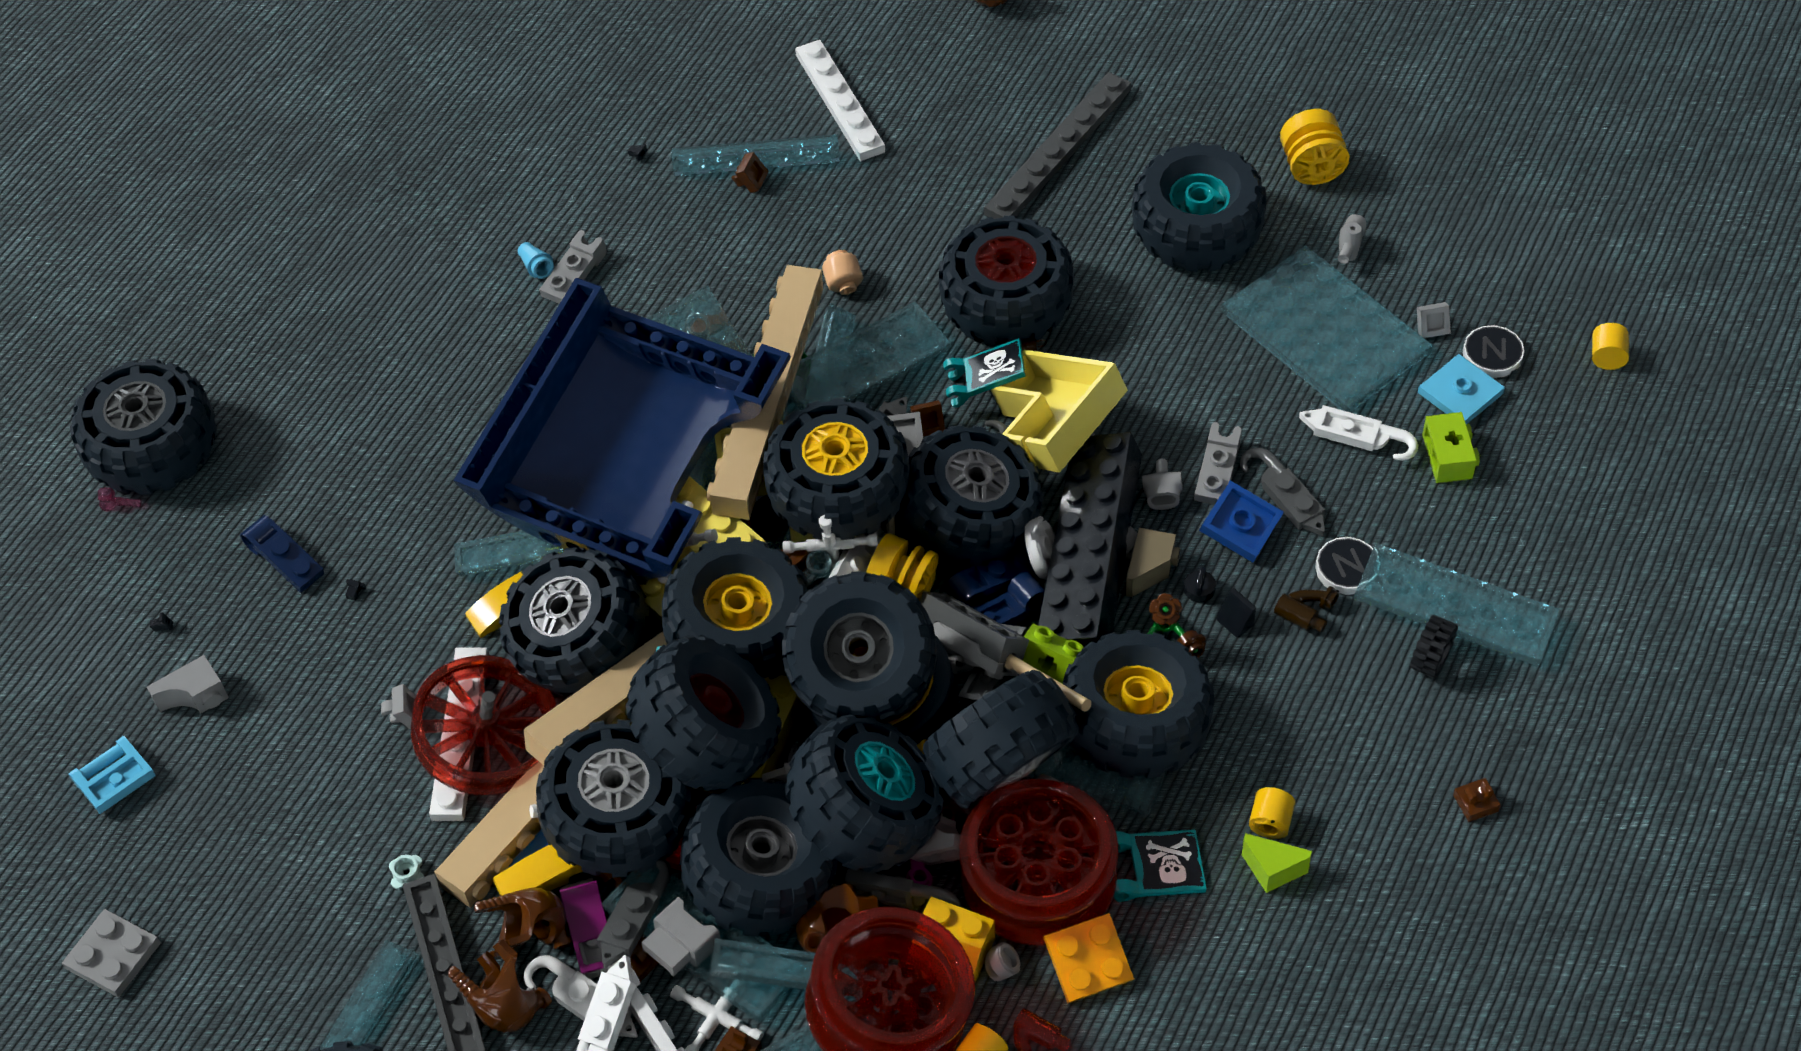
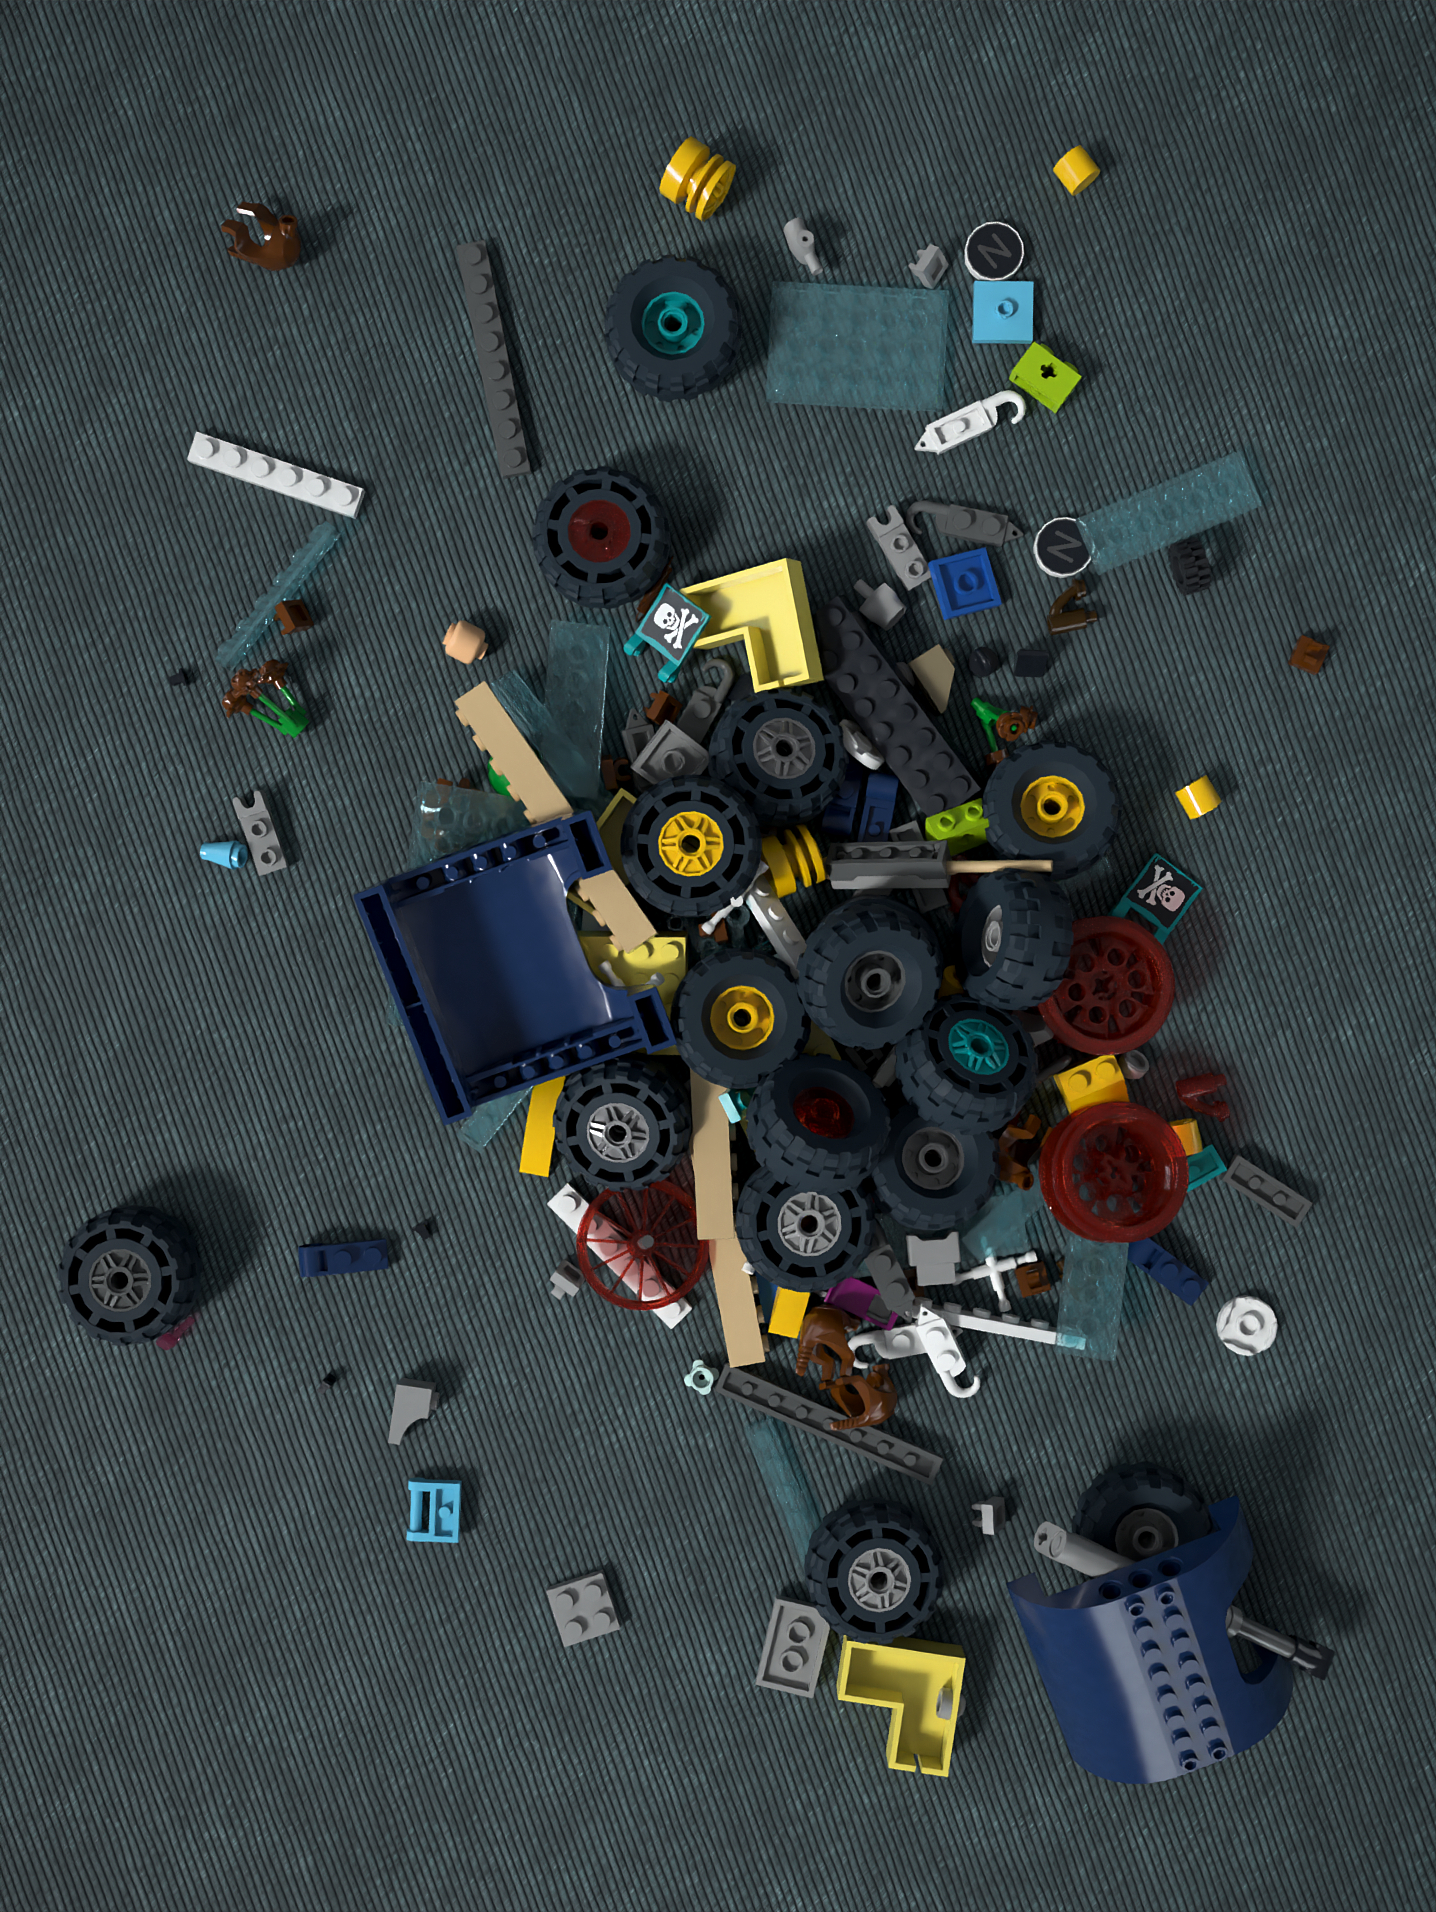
camera: 50 degrees left, 35 degrees up
(674, 225) = (246, 683): none -> reddish brown plant
(1088, 958) = (1189, 1013): light orange plate -> none
(1274, 861) = (1231, 832): lime slope -> none

